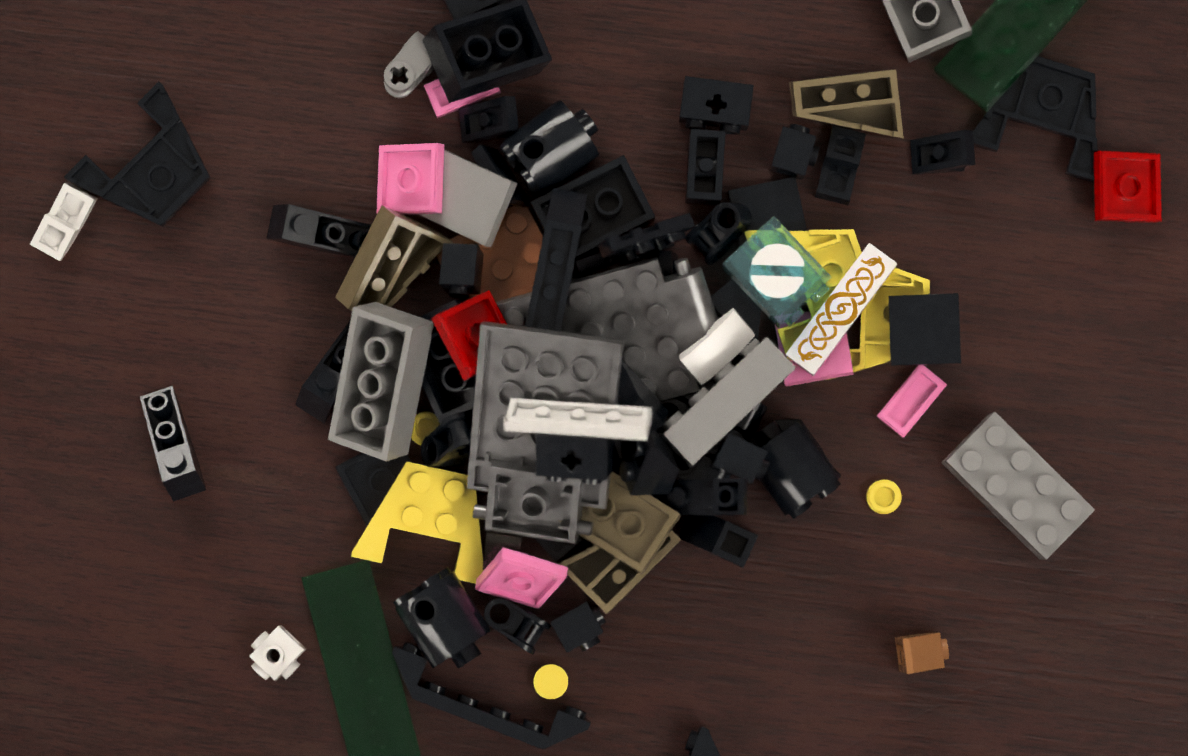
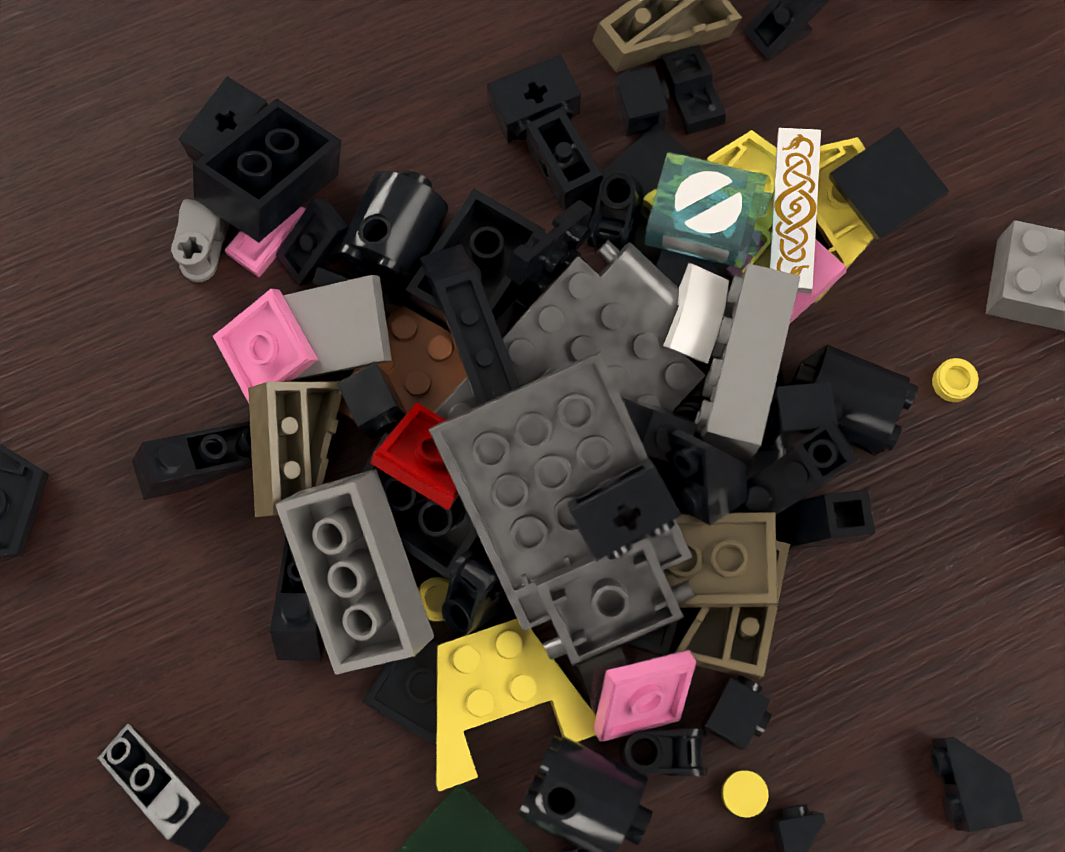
camera: 25 degrees left, 10 degrees down
(578, 419) = (605, 466): white tile -> none
(911, 400) = (915, 269): bright pink tile -> none

